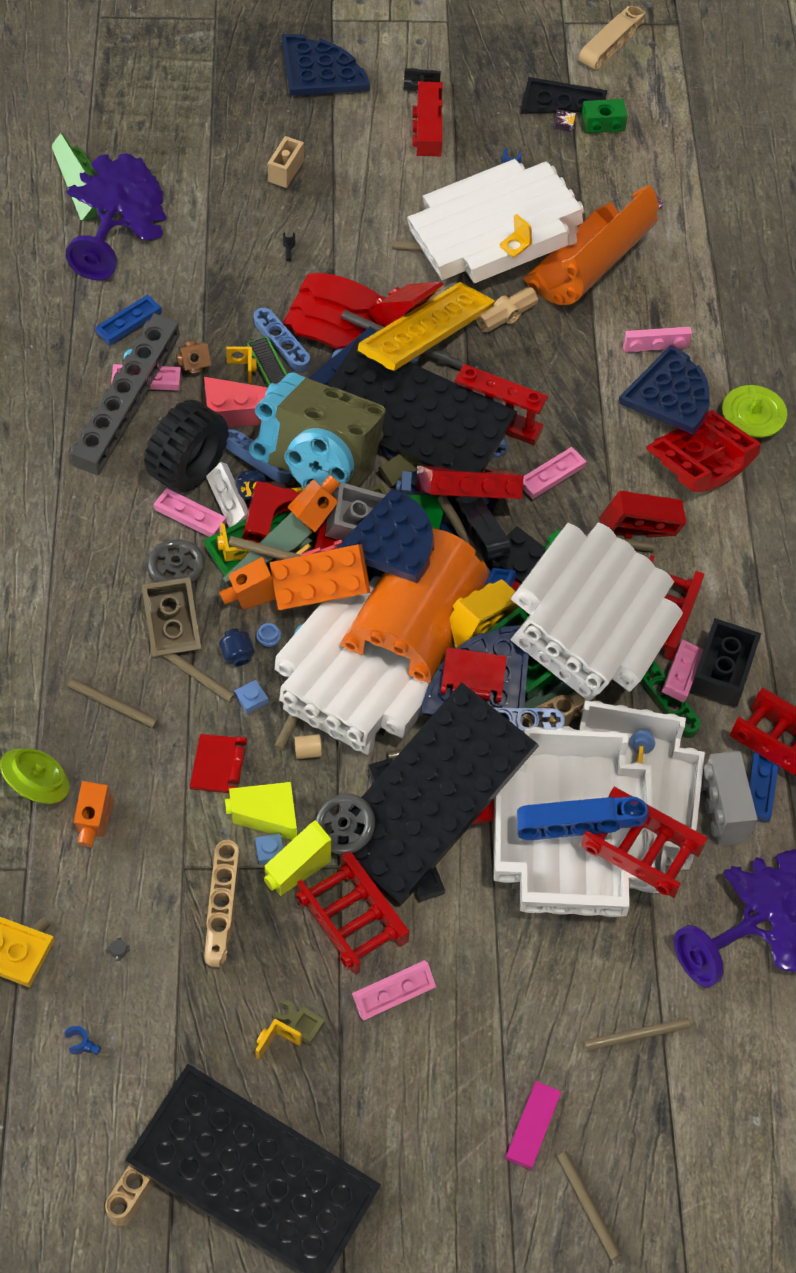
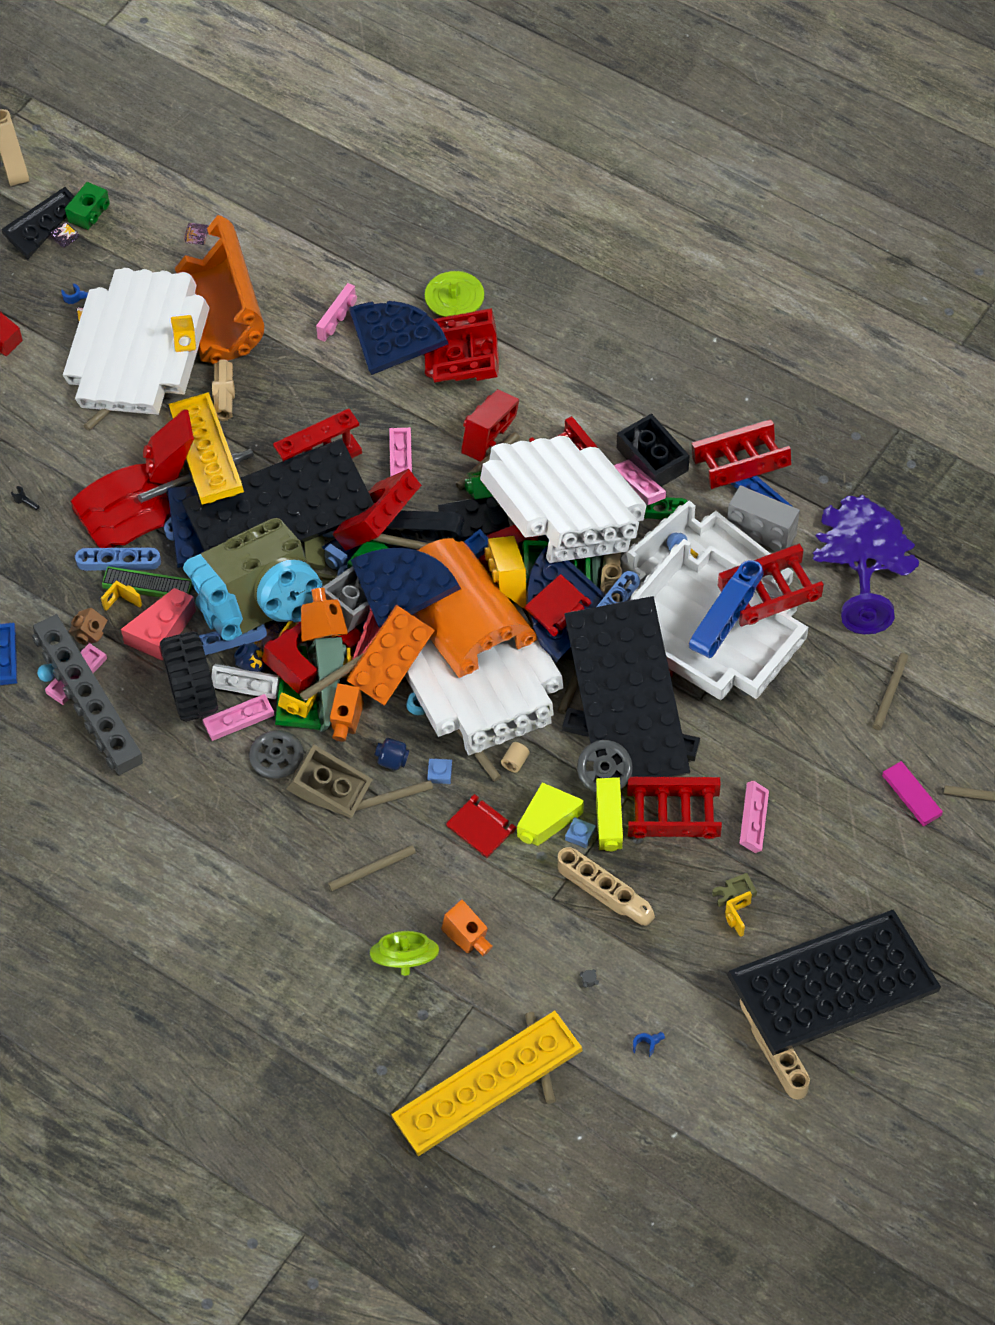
camera: 50 degrees left, 0 degrees up
(268, 635) = (394, 728): medium blue plate -> none

